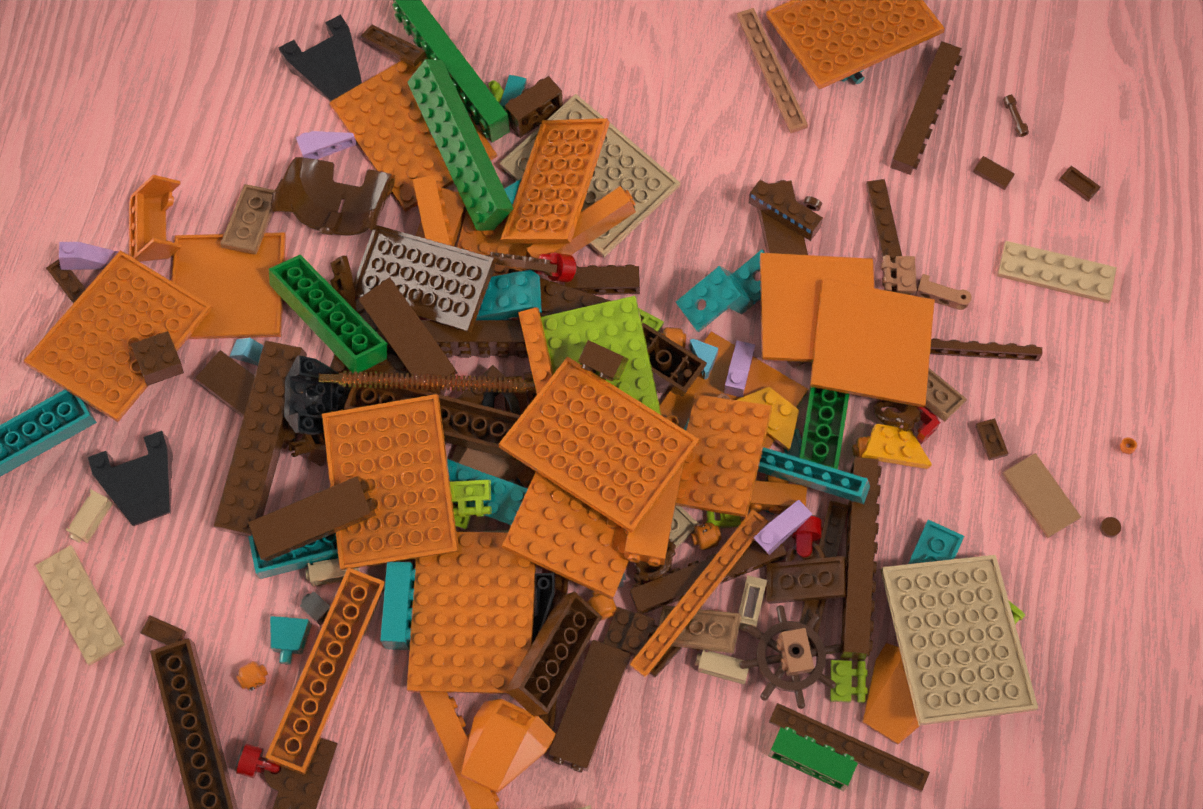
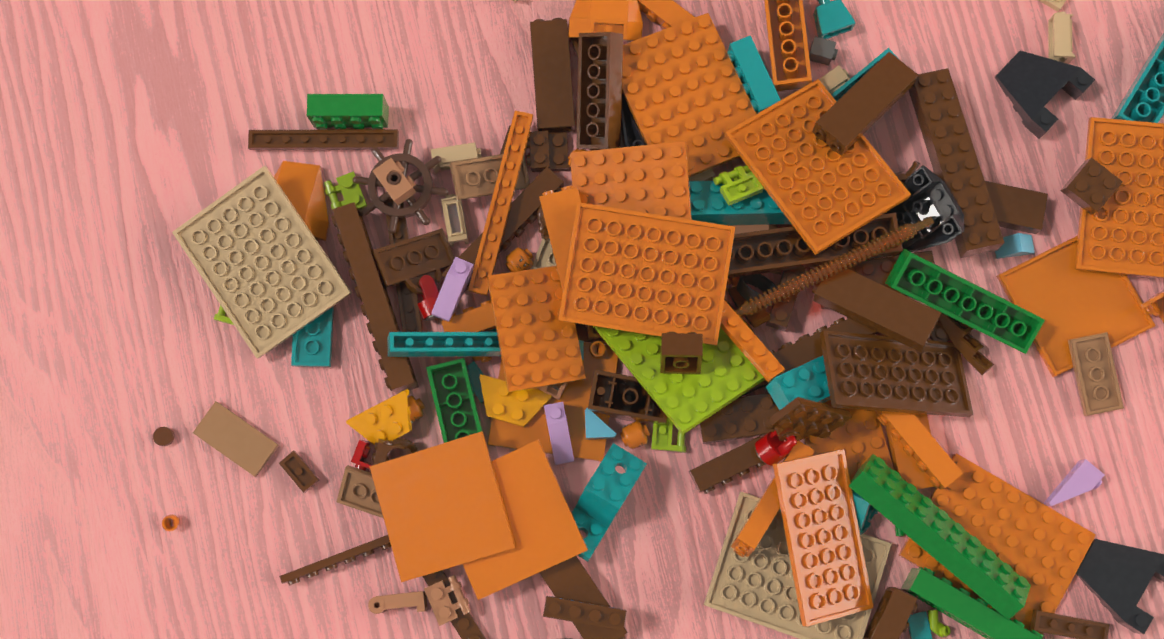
camera: 155 degrees right, 10 degrees up
(316, 197) = (1047, 422): reddish brown piece -> none

